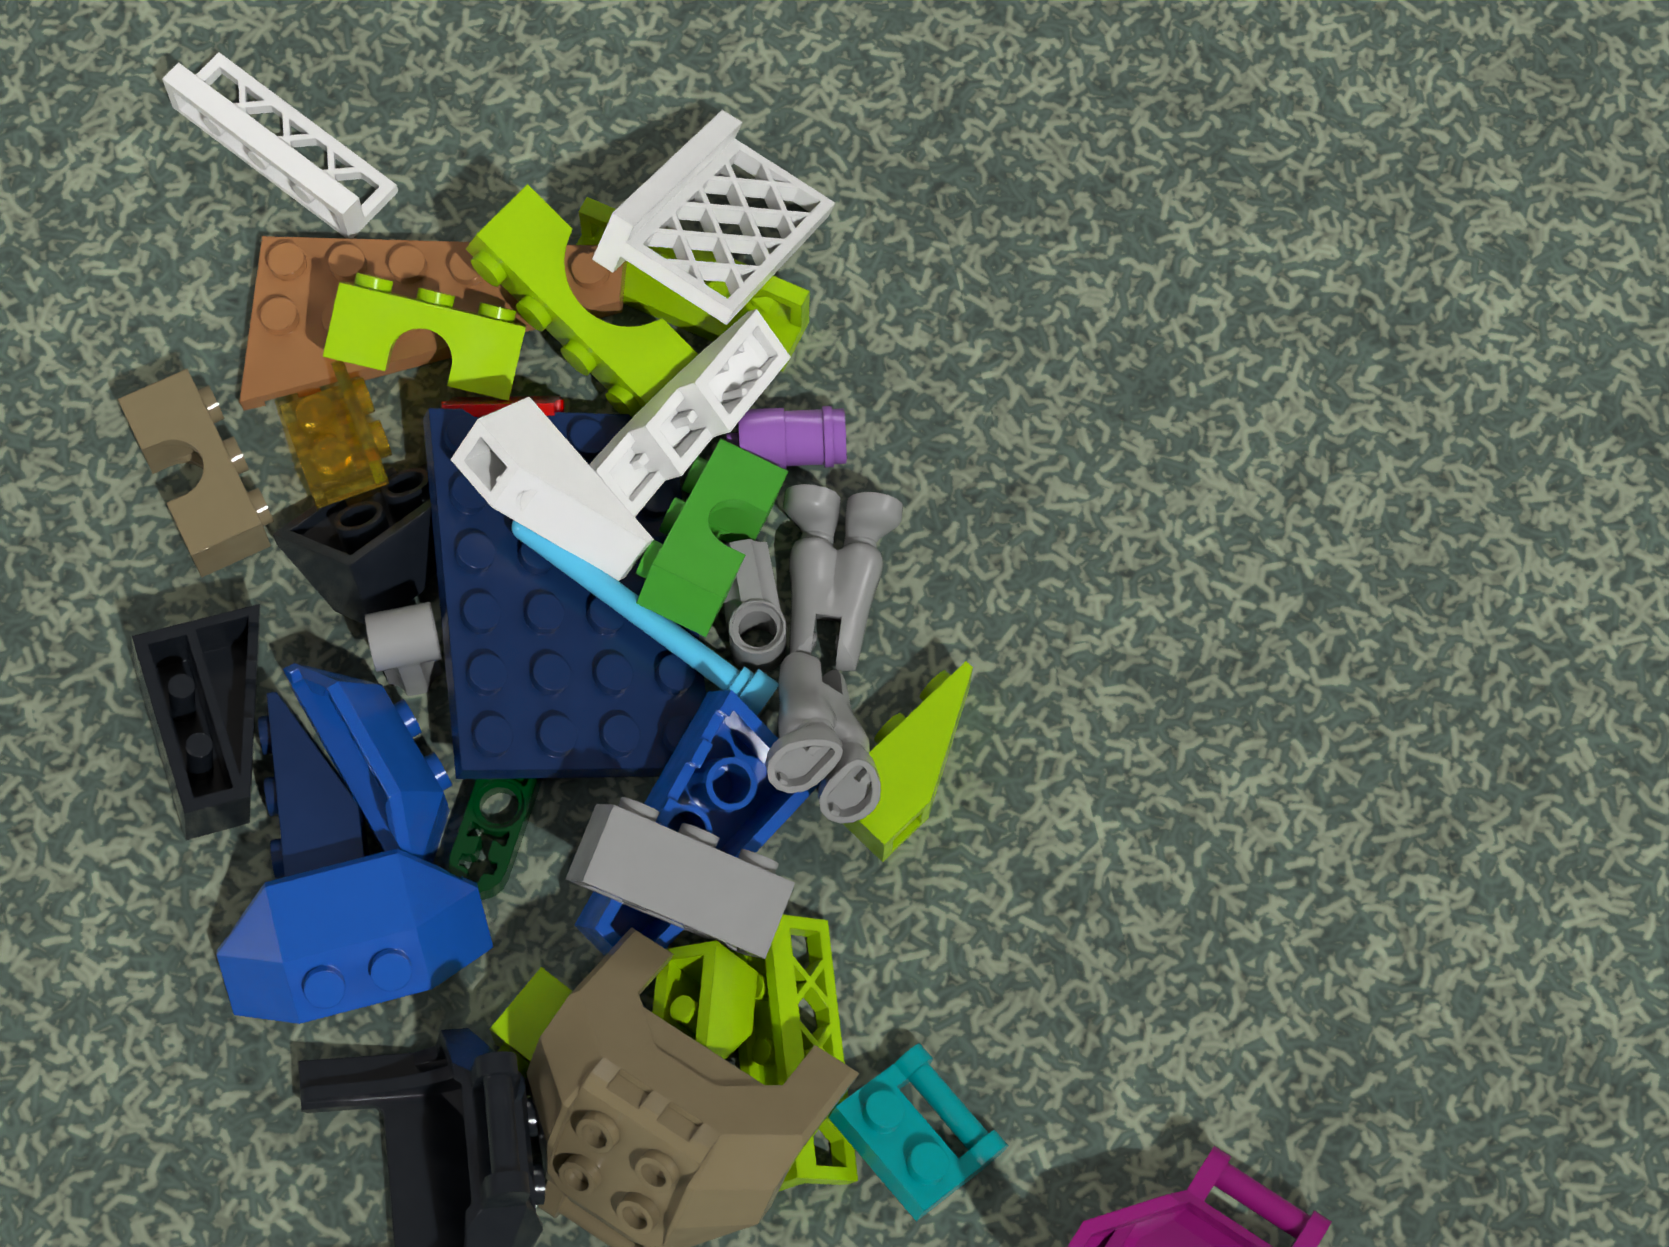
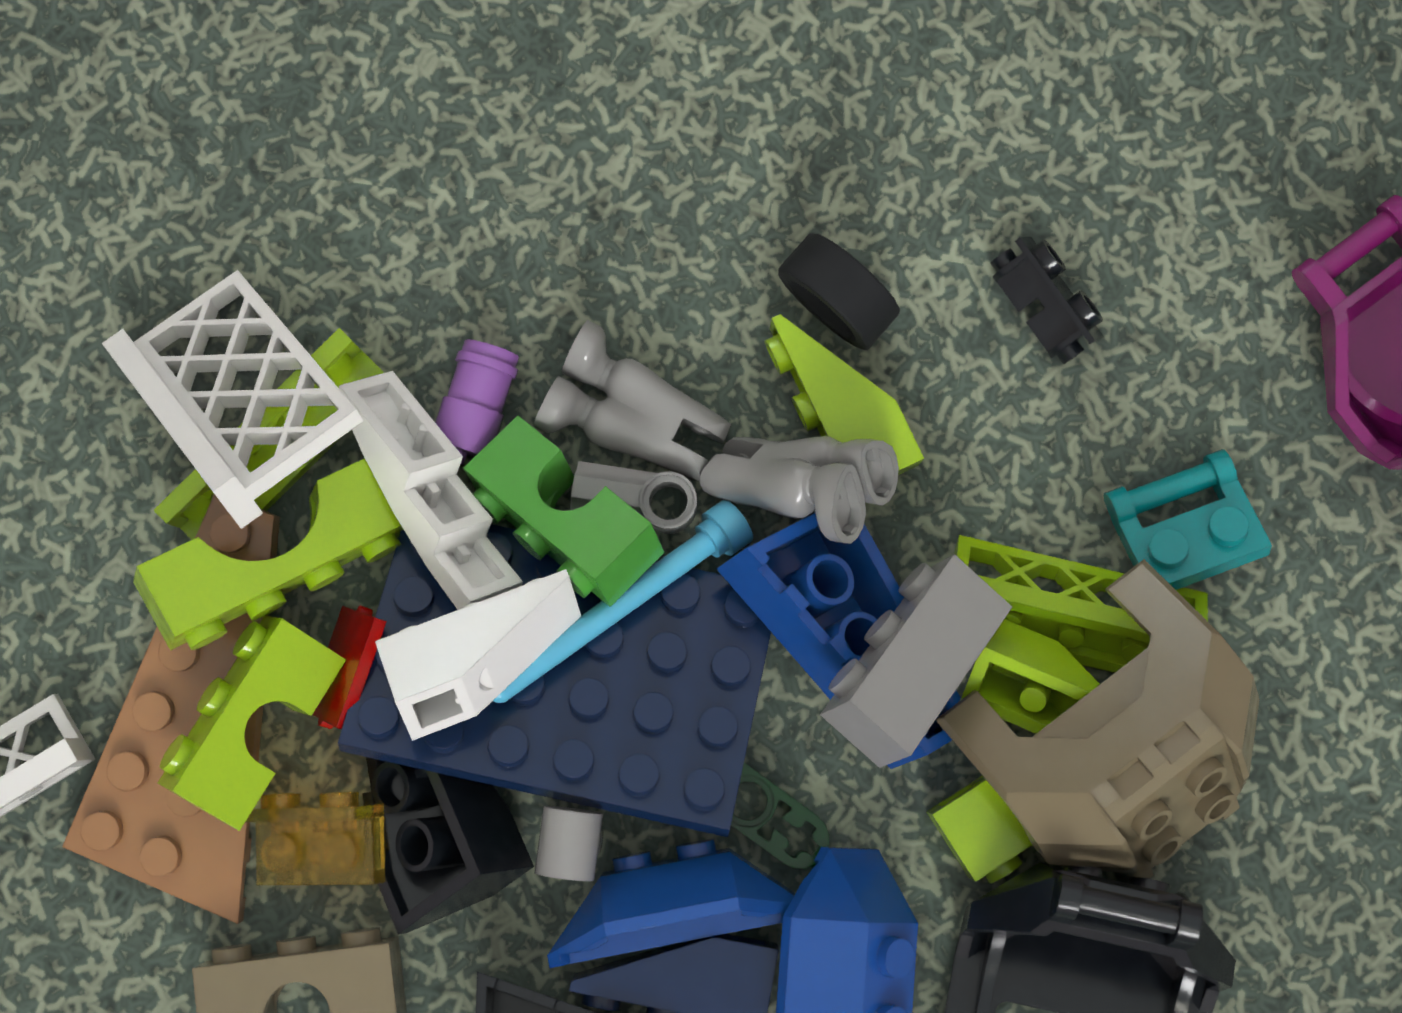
camera: 65 degrees left, 15 degrees up
(1015, 714) = (839, 291): none -> black tyre
(1113, 901) = (1037, 276): none -> black hinge

